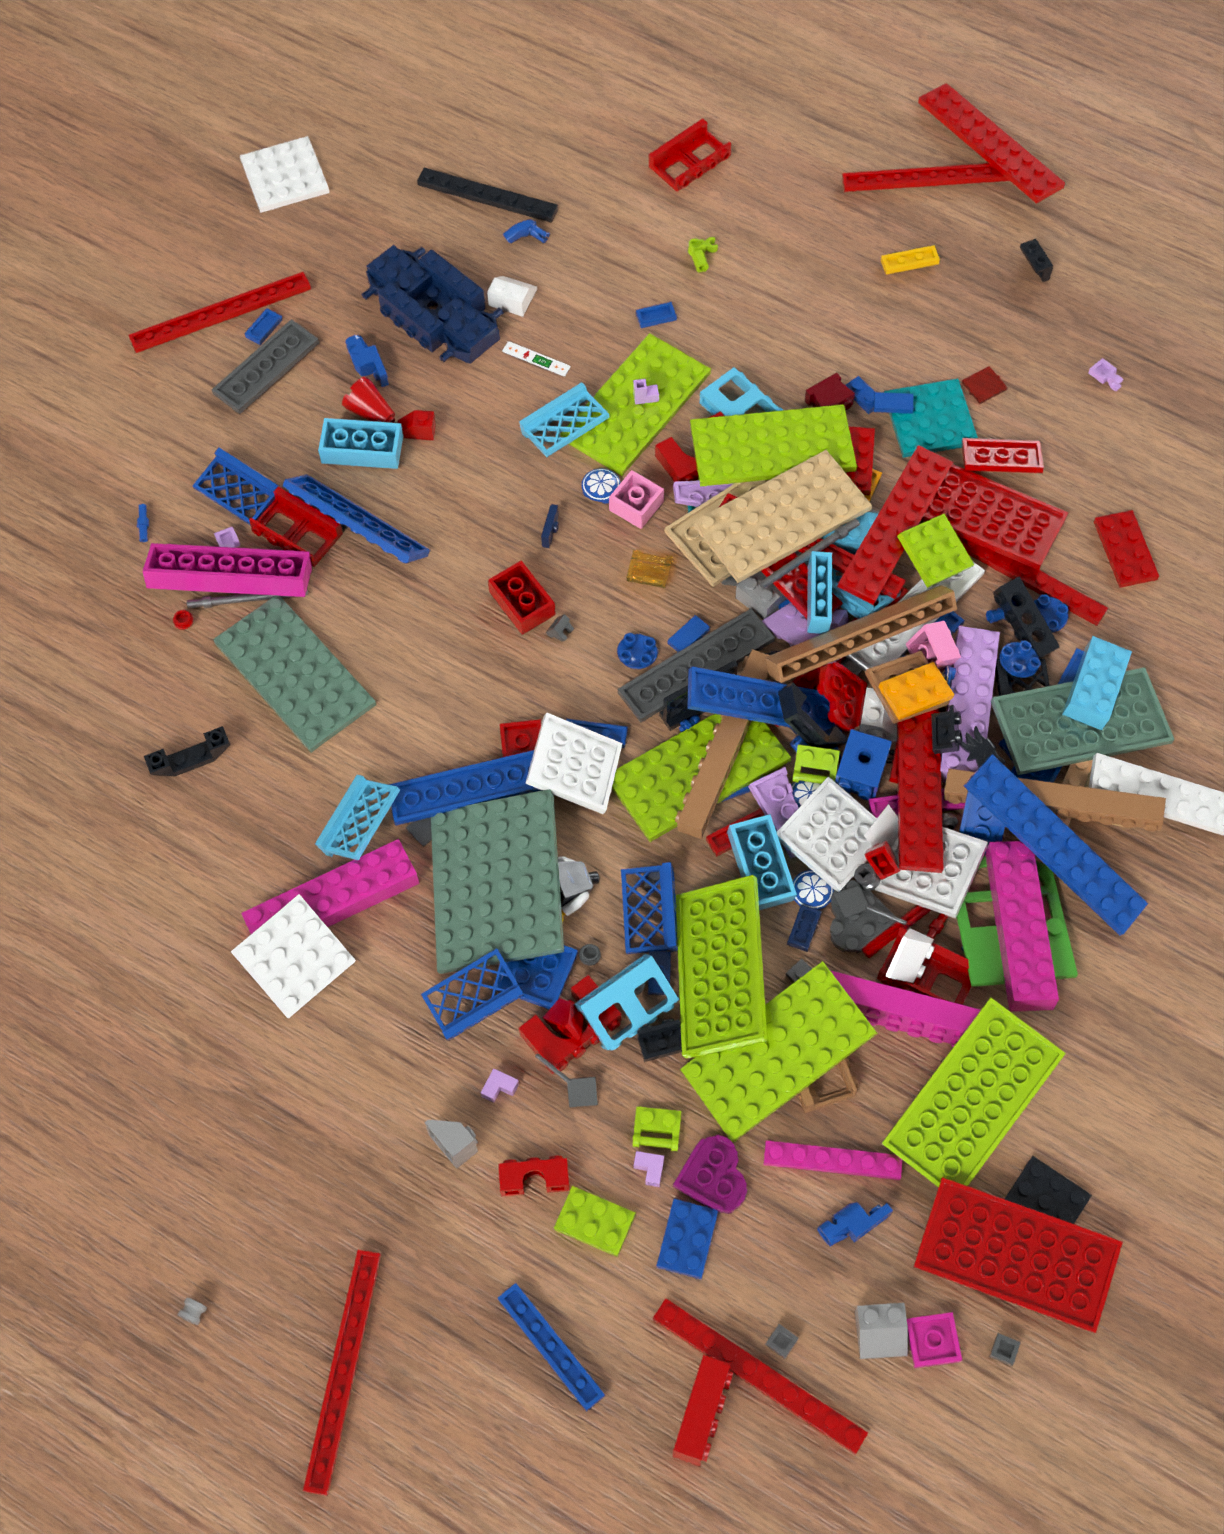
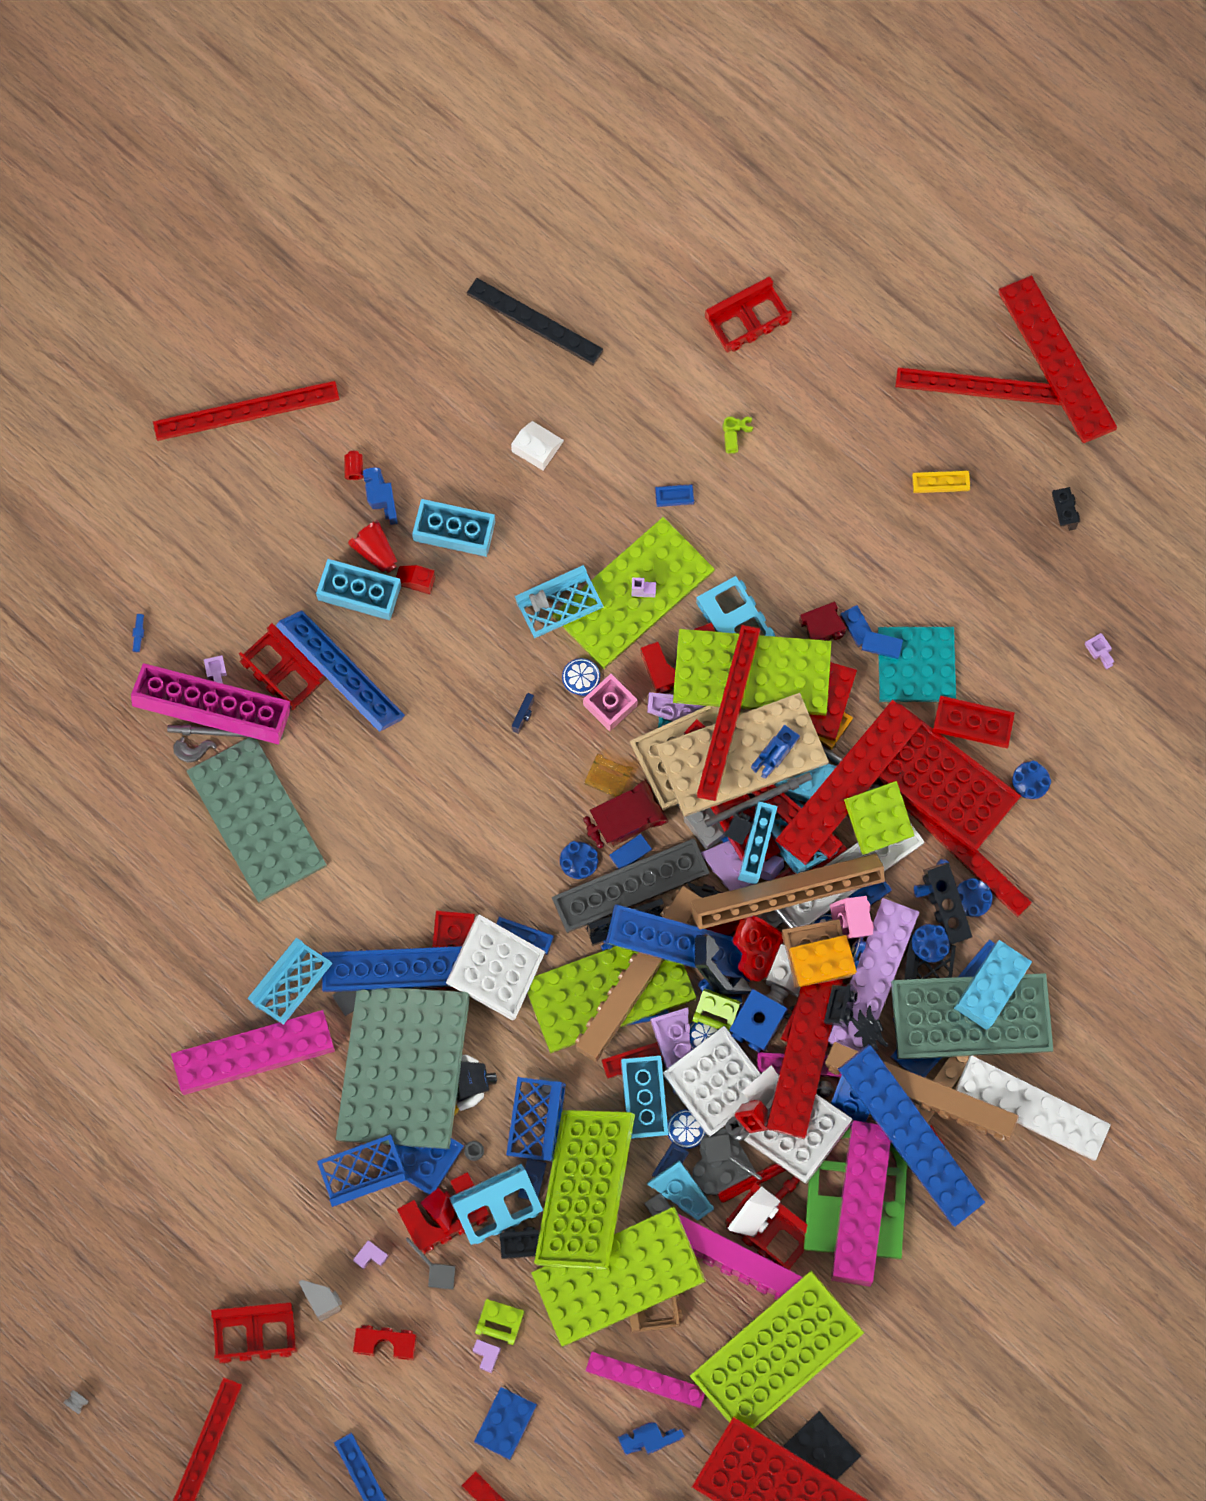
camera: 10 degrees right, 10 degrees up
(183, 619) = (161, 744): red plate -> none
(189, 758) = (146, 888): black slope -> none
(212, 625) = (190, 755): none -> flat silver piece
(243, 472) = (242, 599): blue fence -> none
(263, 326) = (286, 434): blue tile -> none
(265, 366) = (281, 482): dark grey plate -> none
(284, 174) = (335, 257): white plate -> none
(293, 956) = (210, 1103): white plate -> none
(335, 340) = (353, 465): none -> red brick
(380, 1179) = (253, 1319): none -> red window
(412, 285) = (441, 418): dark blue piece -> none
(445, 374) = (453, 527): none -> medium azure brick
(521, 597) = (481, 785): red brick -> none
(525, 229) = (564, 371): blue arm -> none
(536, 358) = (546, 522): white sticker -> none
(544, 419) = (539, 601): none -> light grey wheel
(556, 629) = (508, 822): dark grey tile -> none
(594, 1221) = (429, 1392): lime plate -> none
(676, 600) = (625, 816): none -> dark red piece
(712, 1175) = (538, 1373): magenta plate -> none
(760, 478) = (728, 713): none -> red plate
(797, 580) = (739, 827): none -> black brick
(817, 501) = (775, 751): none -> blue plate
(819, 945) = (680, 1188): none -> medium azure wing
(984, 385) = (979, 637): clear red piece -> none
(1074, 498) = (1031, 780): none -> blue dish
(1126, 549) = (1067, 843): red plate -> none

